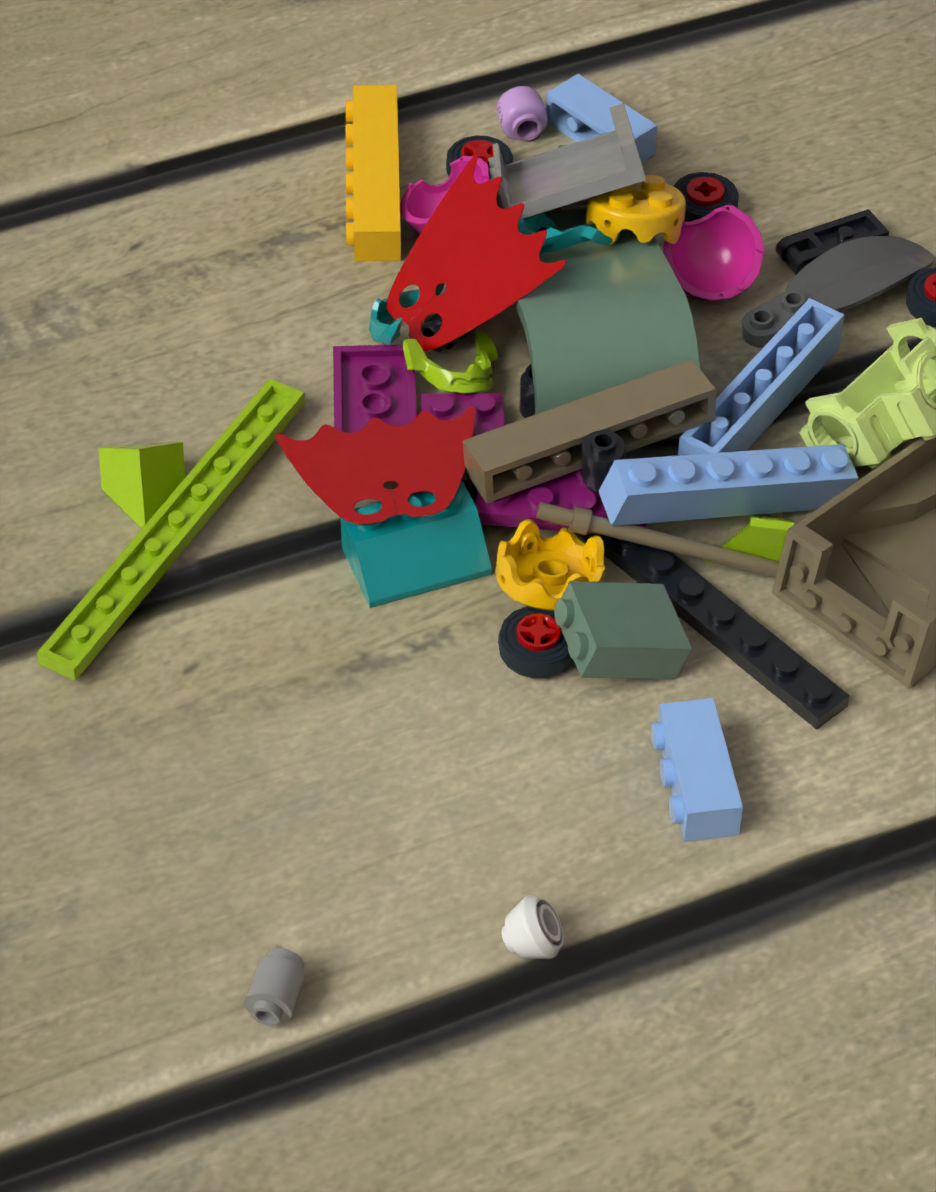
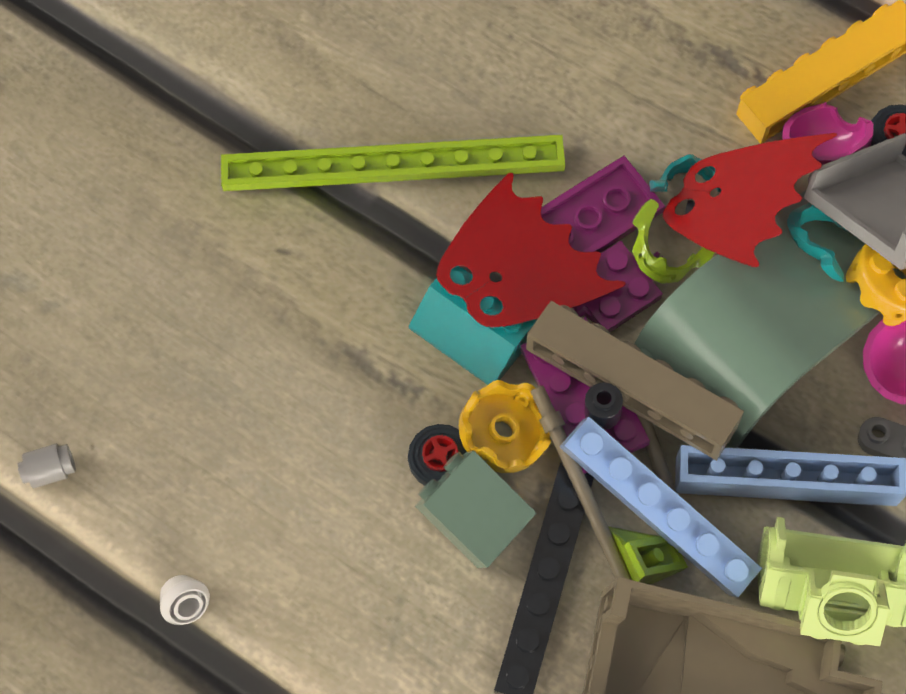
camera: 60 degrees right, 20 degrees up
(141, 476) = (419, 115): lime slope -> none
(697, 770) = (389, 630): light blue brick -> none

